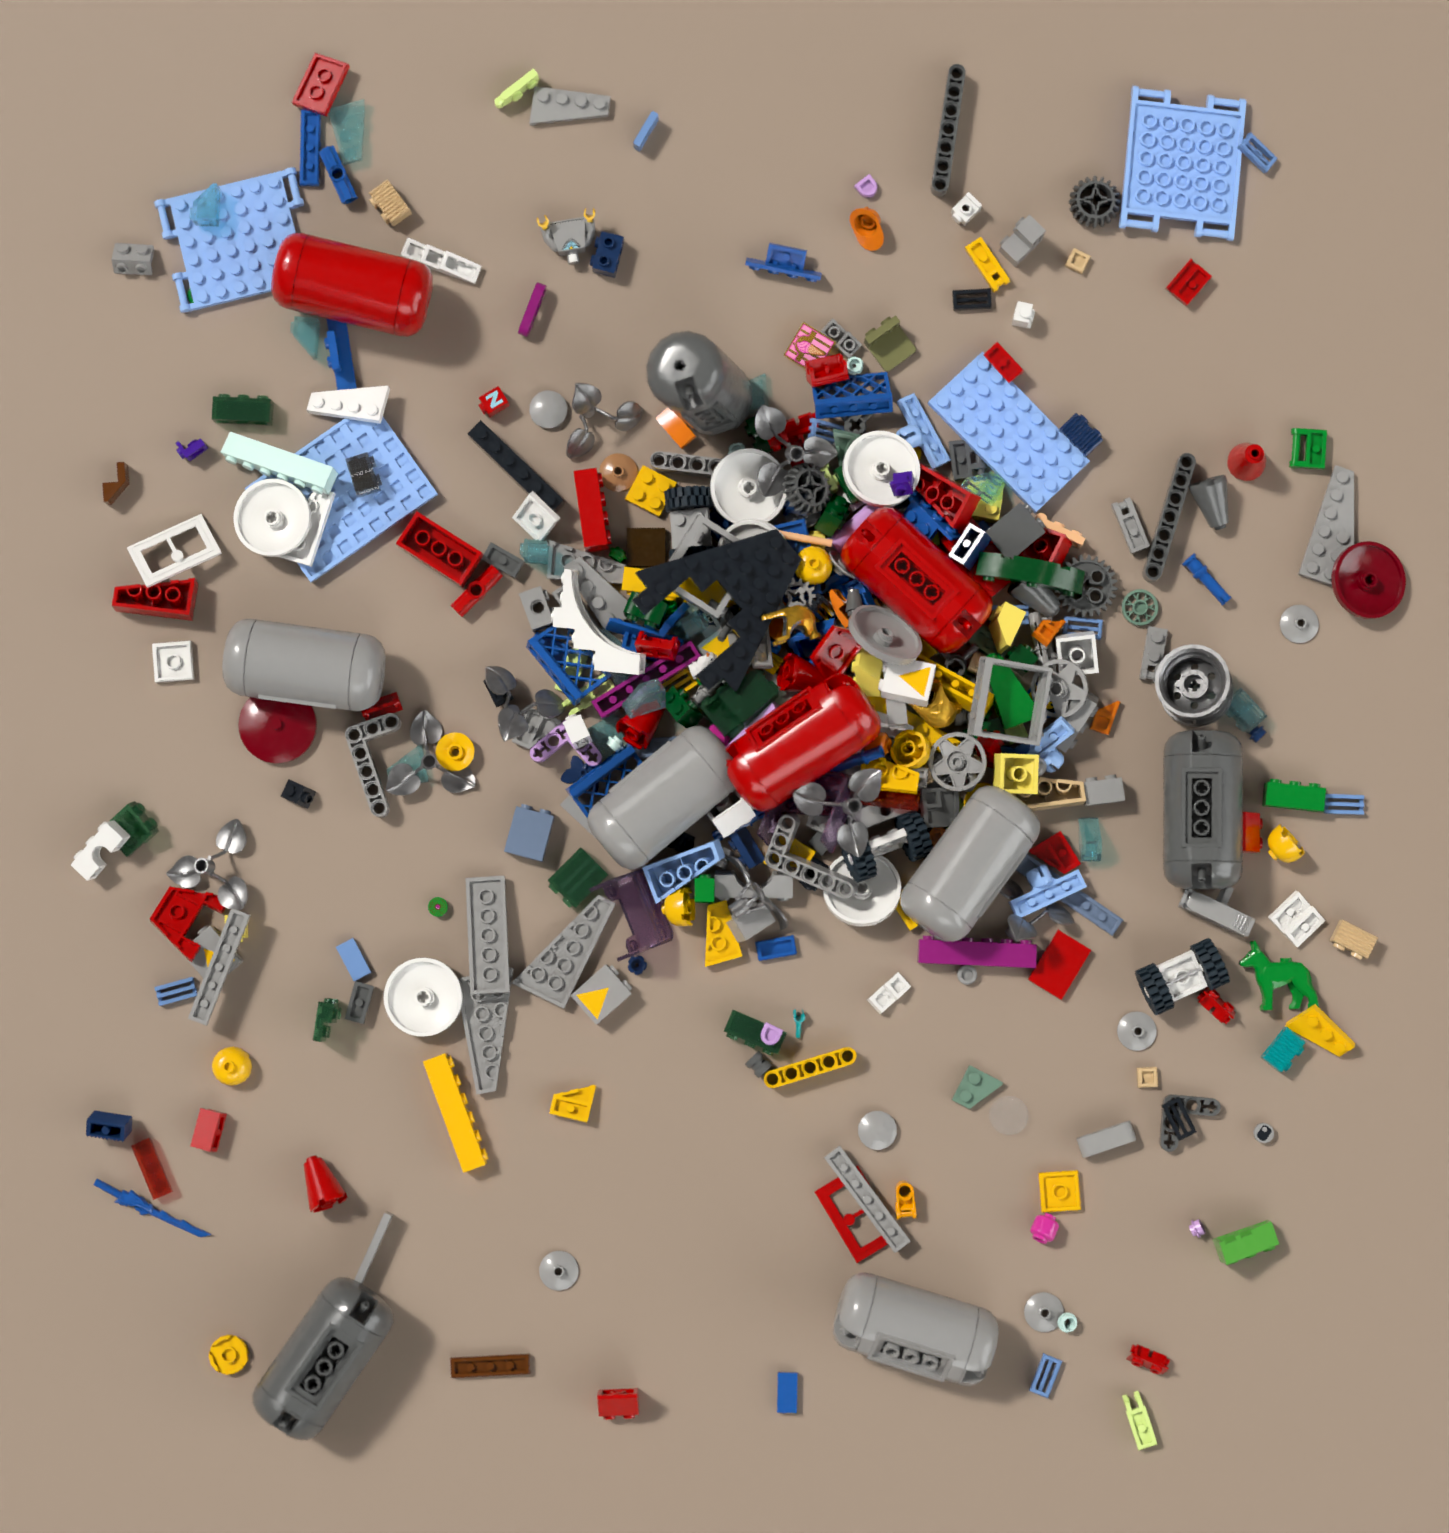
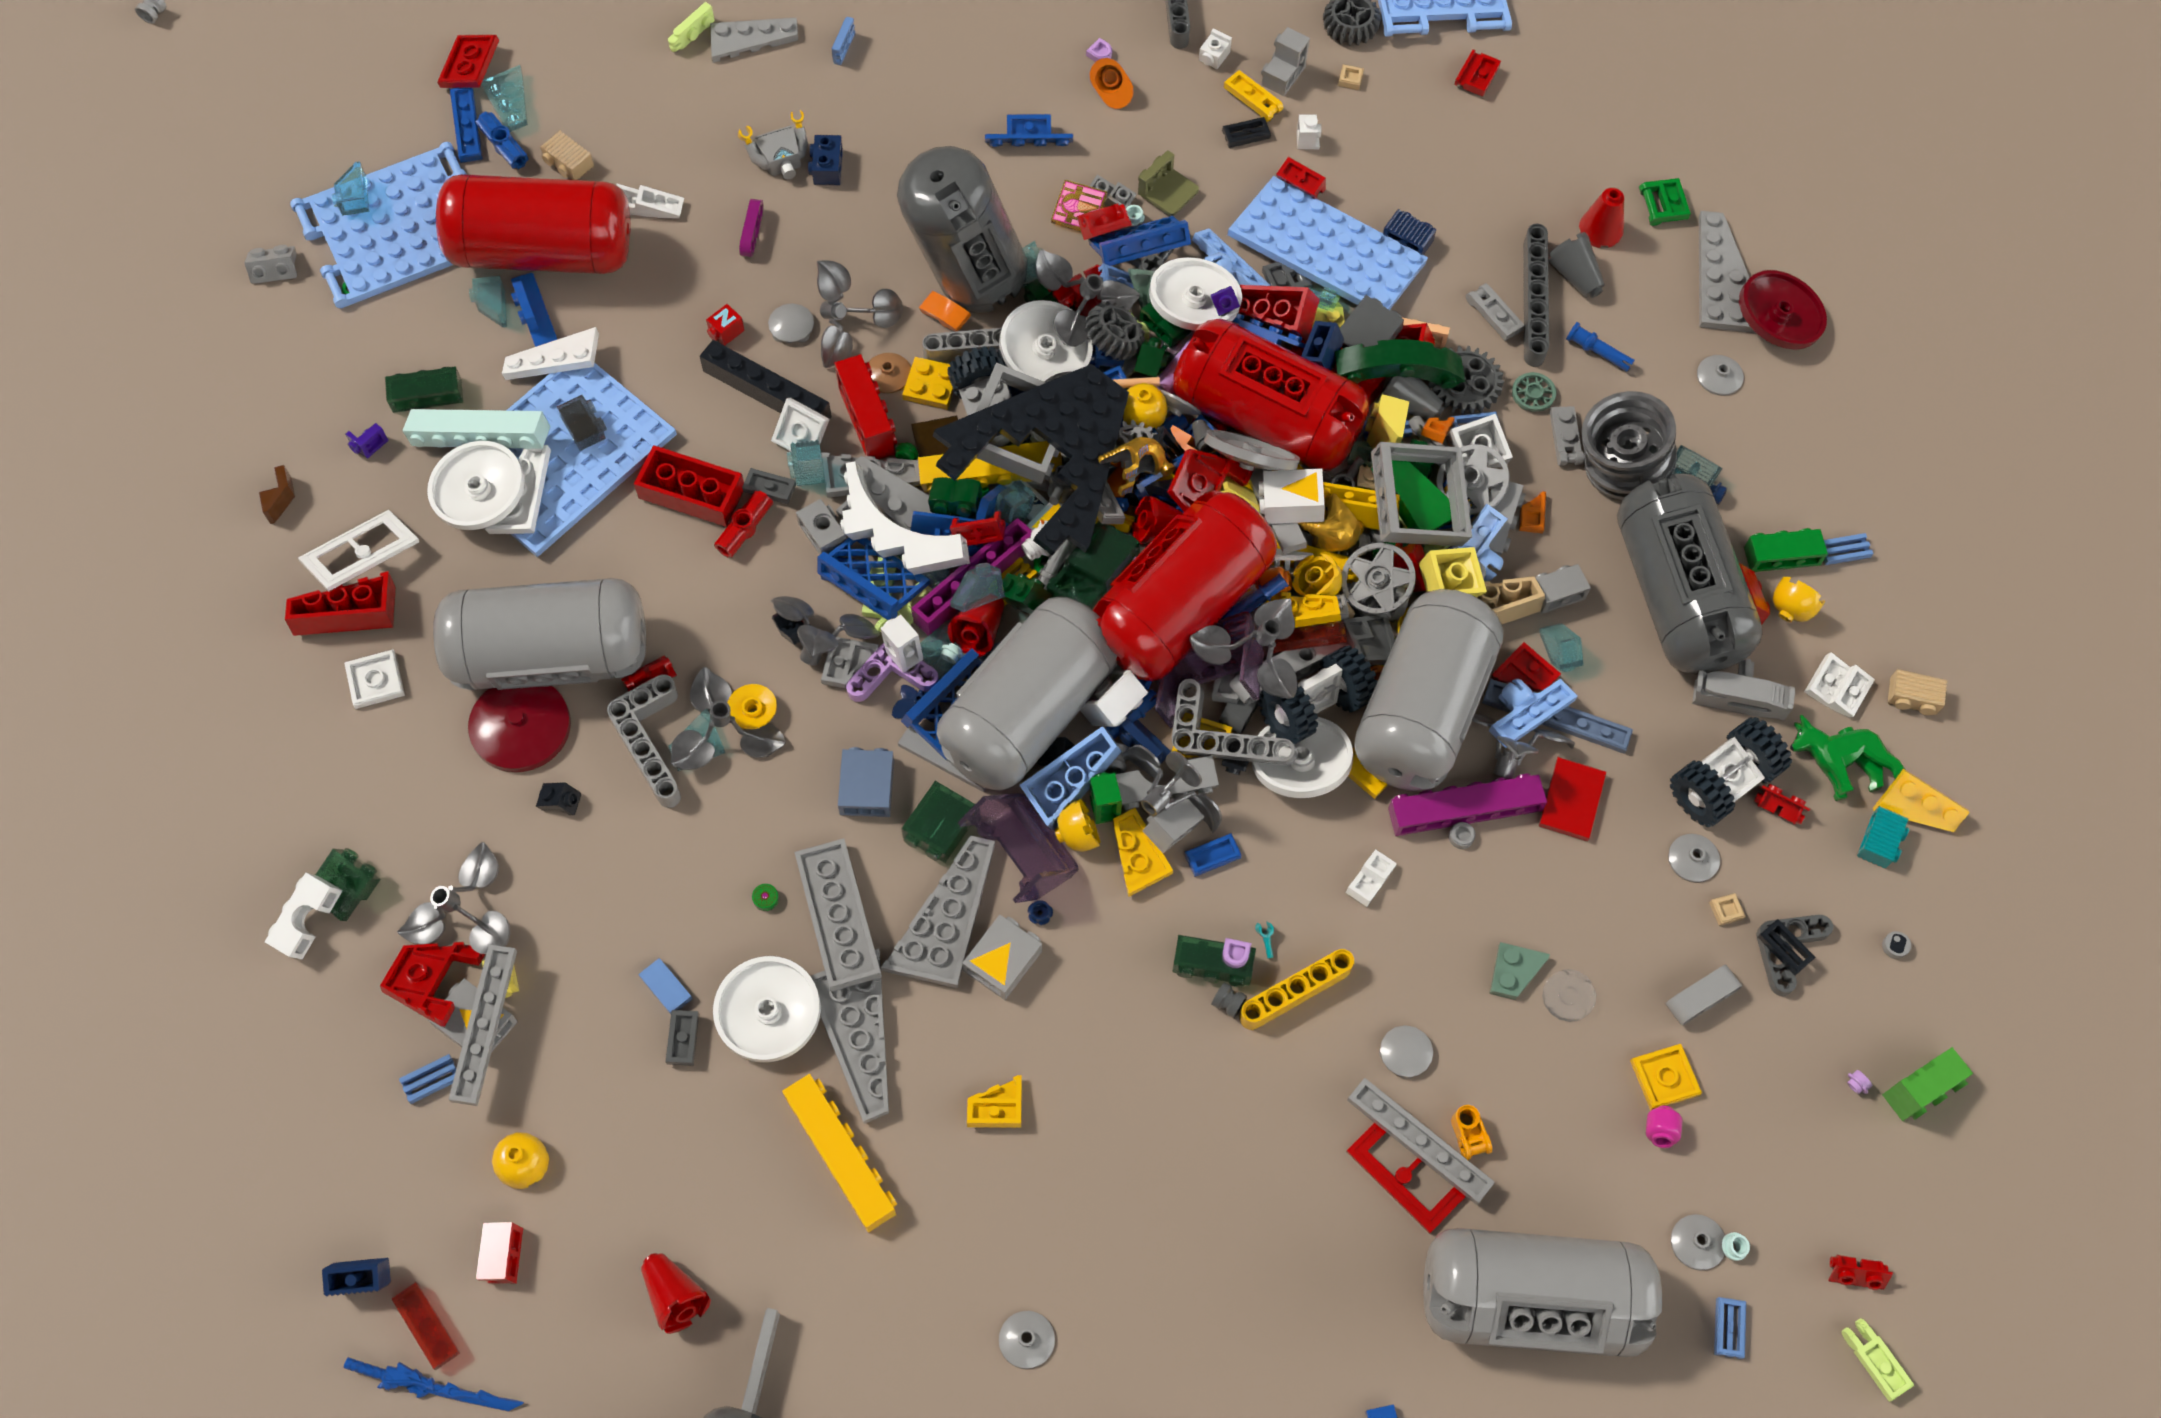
camera: 15 degrees left, 20 degrees down
(327, 1012) = (640, 1060): clear green plate -> none

